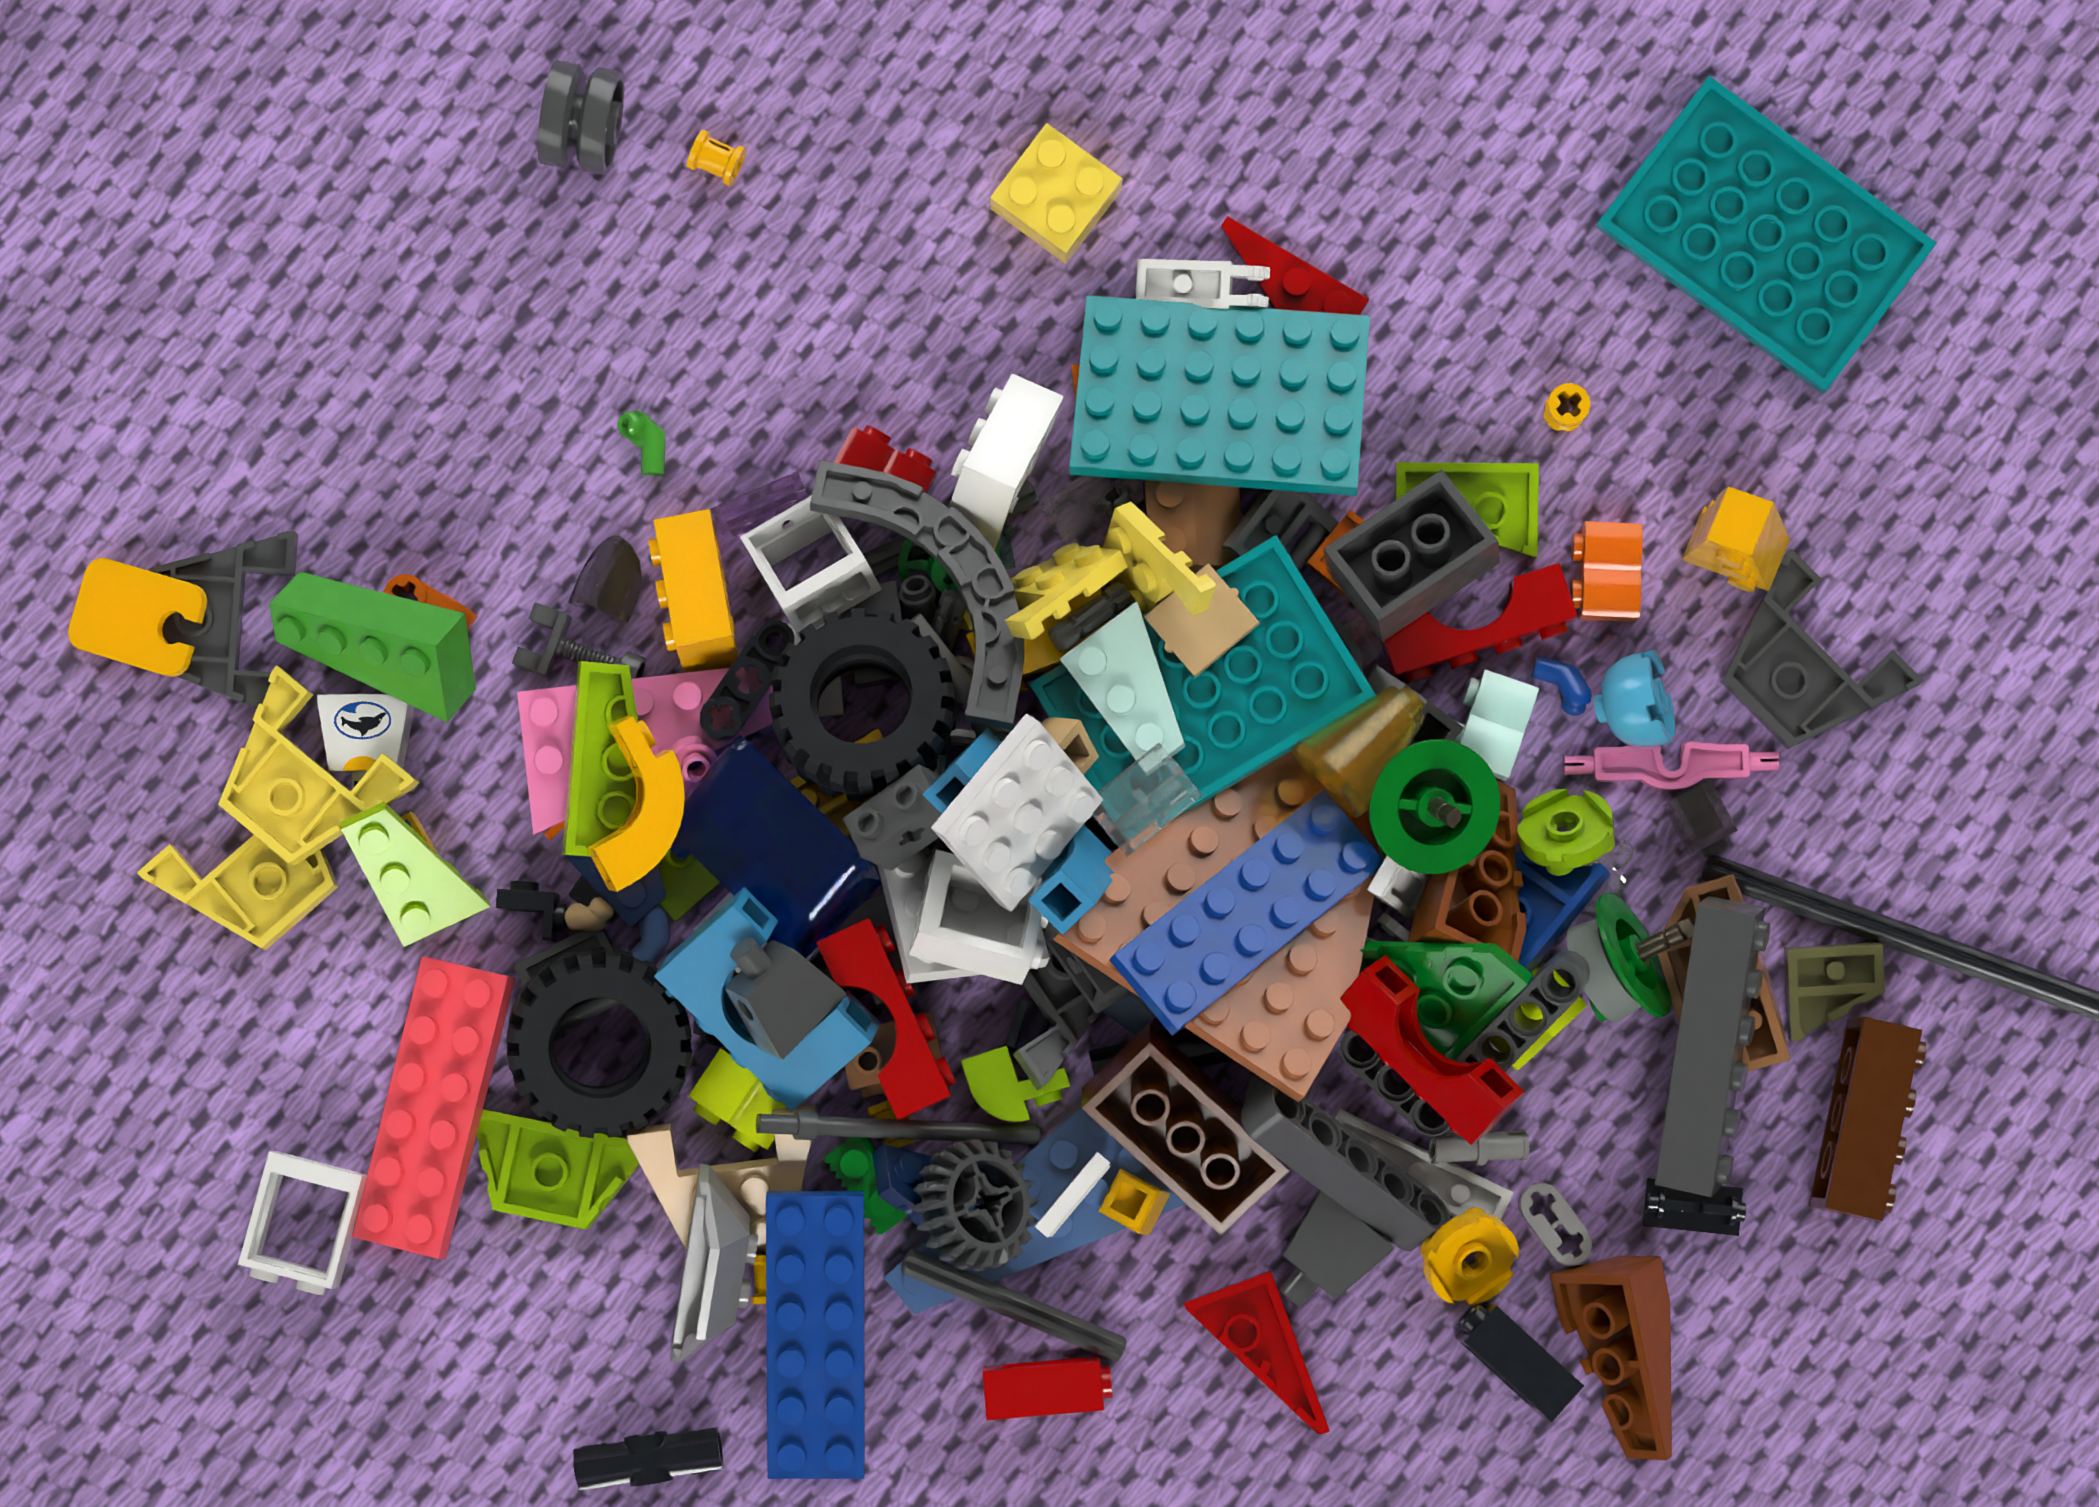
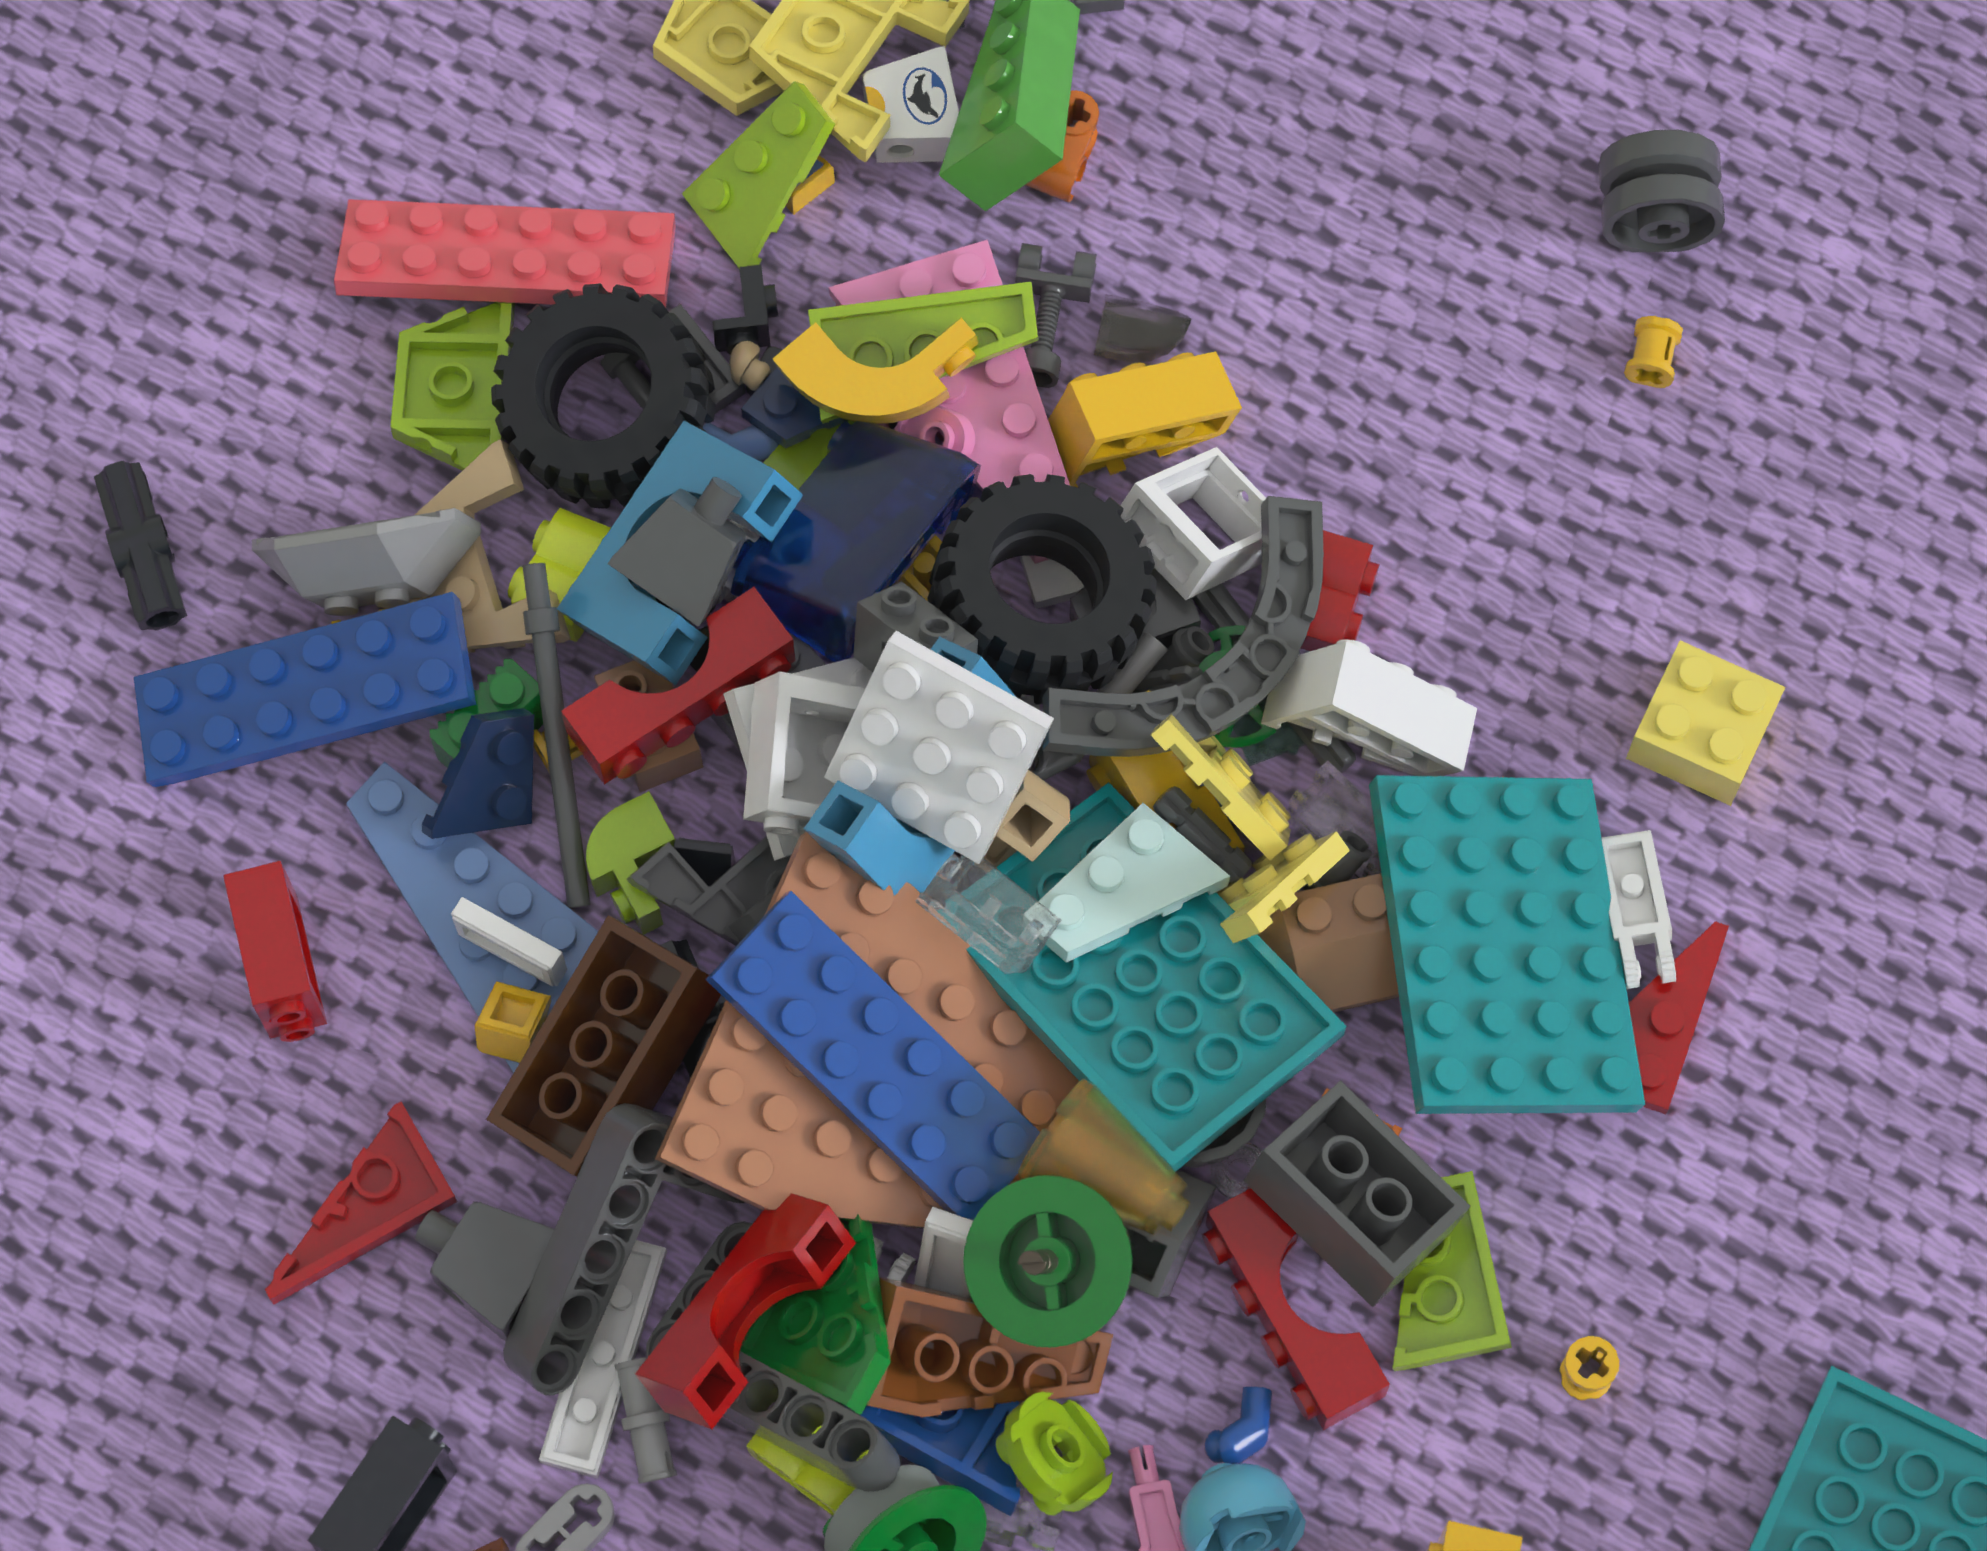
camera: 80 degrees right, 15 degrees down
(270, 1268) = (356, 103): white window -> none
(648, 437) = (1312, 341): bright green arm -> none
(727, 694) = (1028, 455): black beam -> none
(744, 511) = (1256, 458): clear purple plate -> none
(955, 1183) = (502, 869): dark grey gear -> none
(1013, 1305) = (370, 908): dark grey axle -> none
(1208, 635) = (1216, 969): tan piece -> none
(1282, 515) = (1371, 1040): dark grey plate -> none
(1457, 1239) = (535, 1424): yellow plate -> none
(1497, 719) = (1172, 1347): light aqua brick -> none
(1607, 571) = (1393, 1456): orange brick -> none

